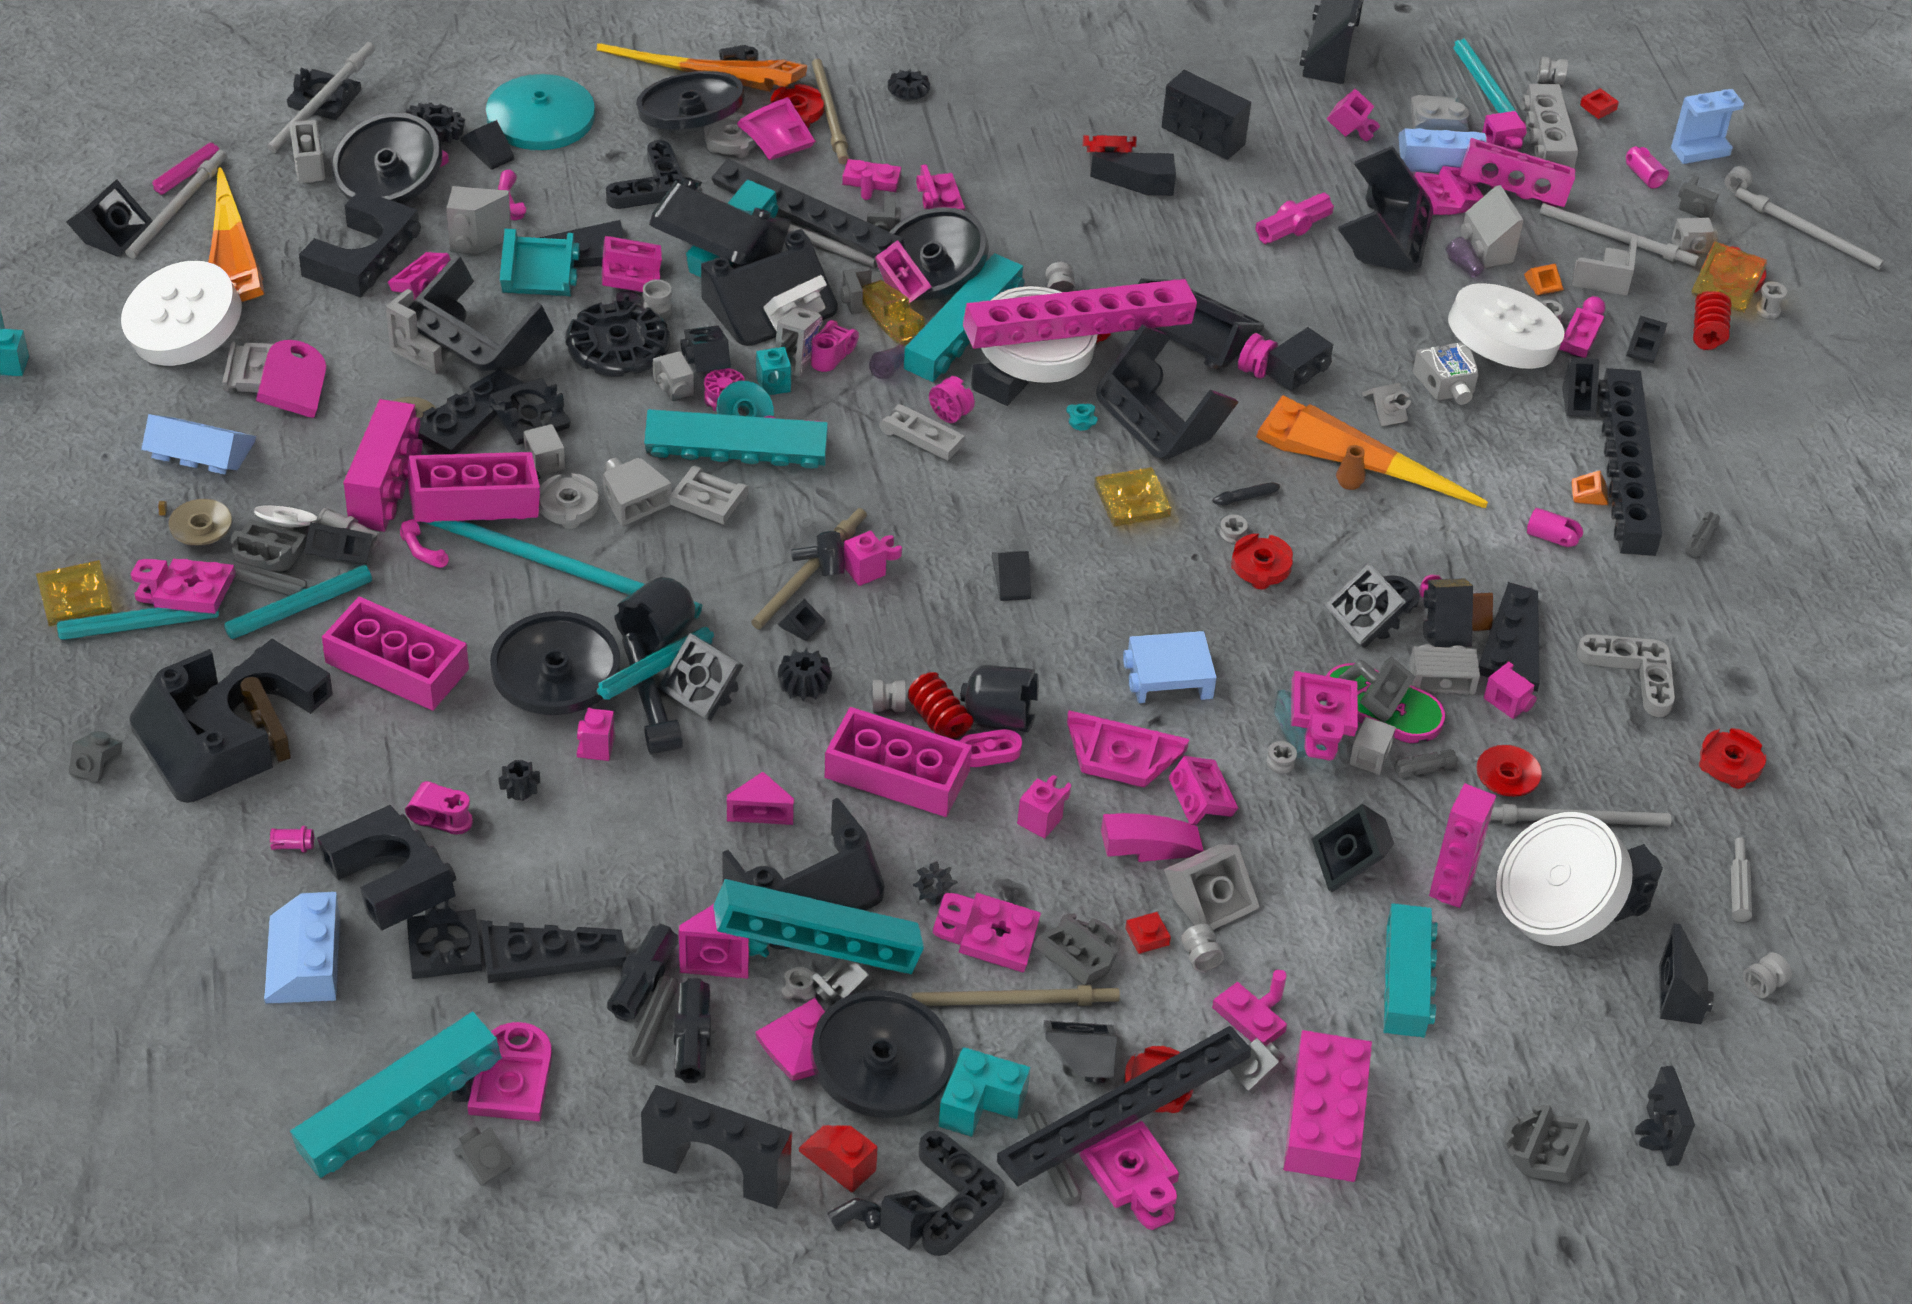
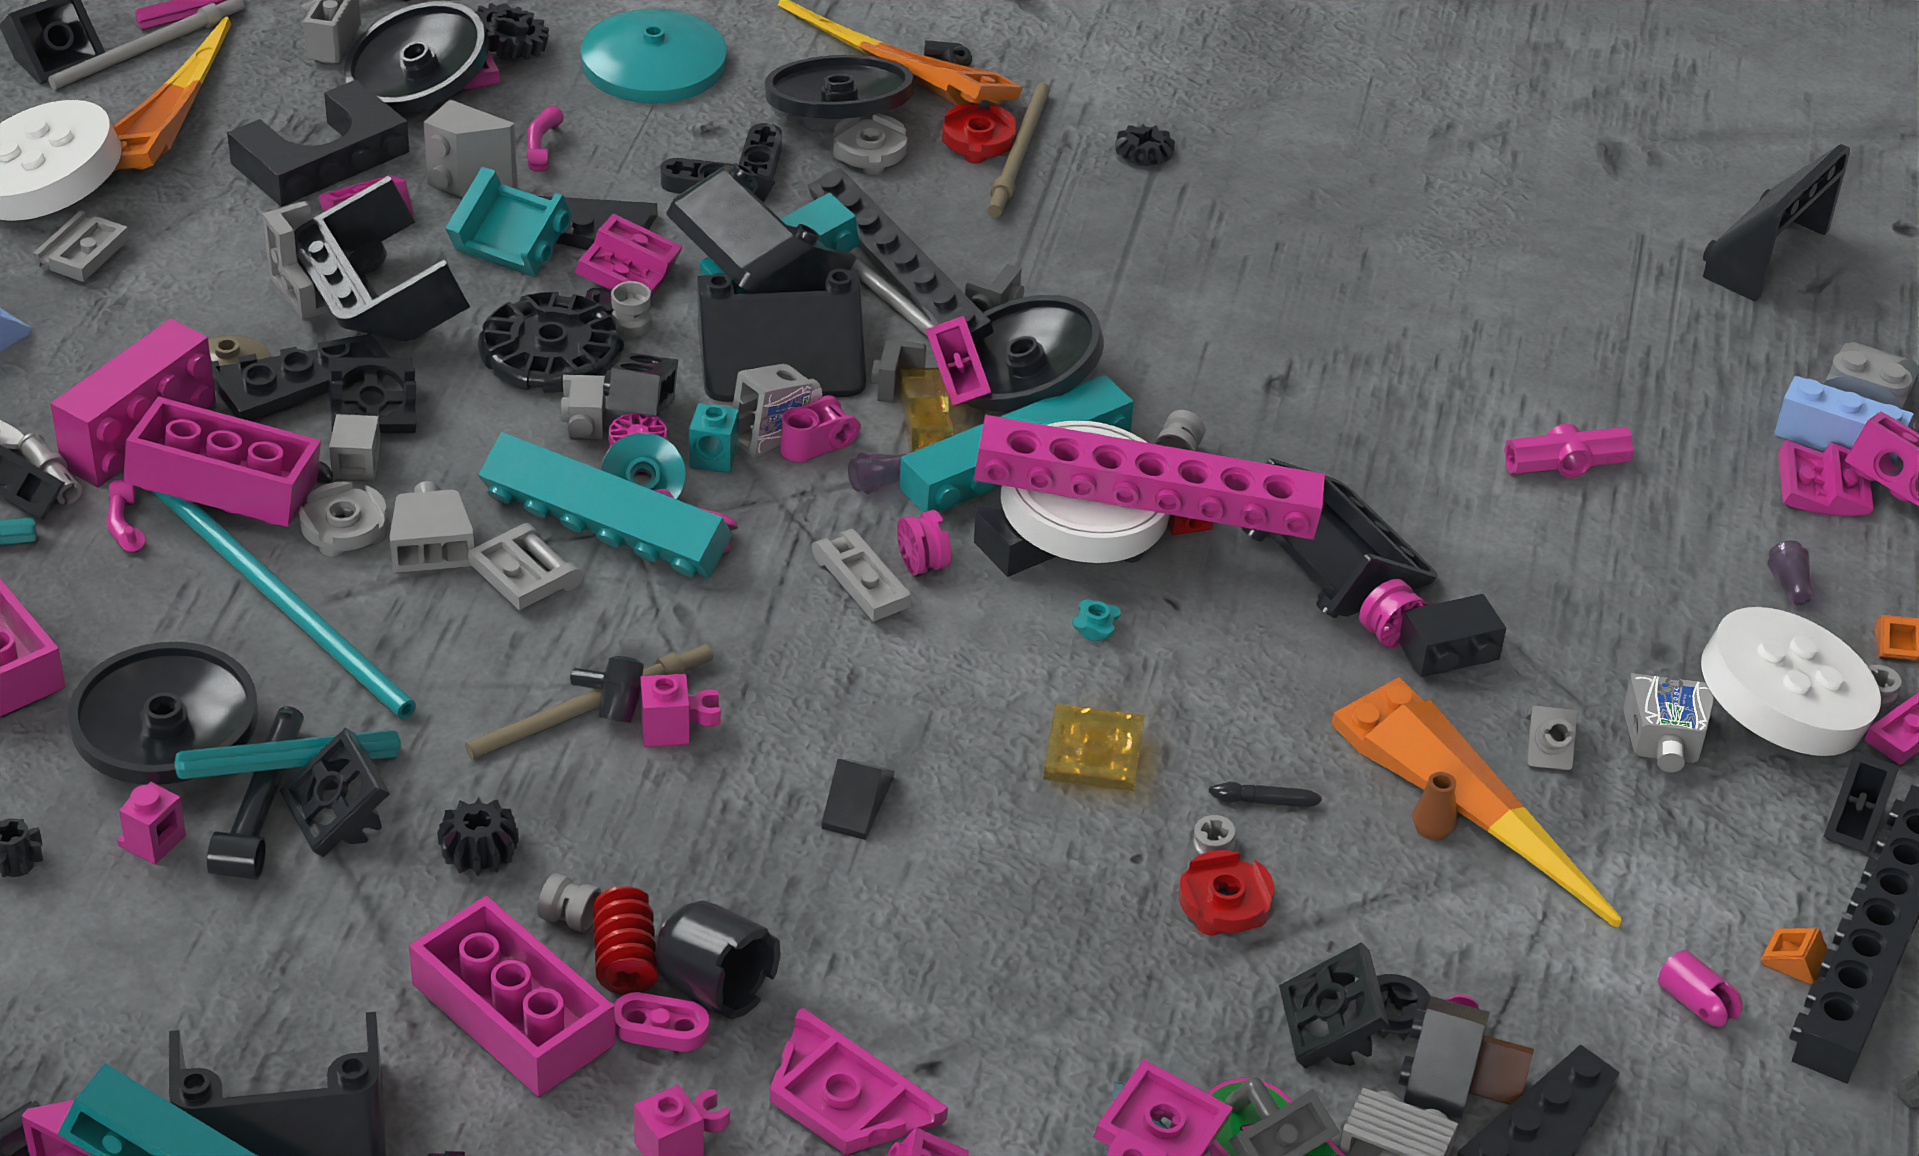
camera: 25 degrees right, 5 degrees down
(292, 381) = (117, 276): dark pink tile -> none
(489, 145) = (560, 74): black slope -> none
(656, 613) = (337, 689): black cylinder -> none
(760, 802) = (293, 985): dark pink slope -> none
(777, 129) = (928, 150): dark pink plate -> none
(802, 621) = (532, 766): black slope -> none
(803, 296) = (808, 354): white bracket -> none
(871, 177) = (1017, 239): dark pink plate -> none
(938, 190) = (1094, 283): dark pink bracket -> none
(1119, 143) = (1347, 280): red plate -> none
(1131, 398) = (1185, 630): black windscreen -> none
(1136, 171) = (1381, 331): black slope -> none
(1170, 664) = (990, 992): light blue panel -> none
(1206, 114) = (1517, 283): black brick -> none
(1352, 114) = (1733, 339): dark pink brick -> none
(1401, 218) = (1731, 499): black windscreen -> none
(1493, 228) = (1850, 545): light grey slope -> none

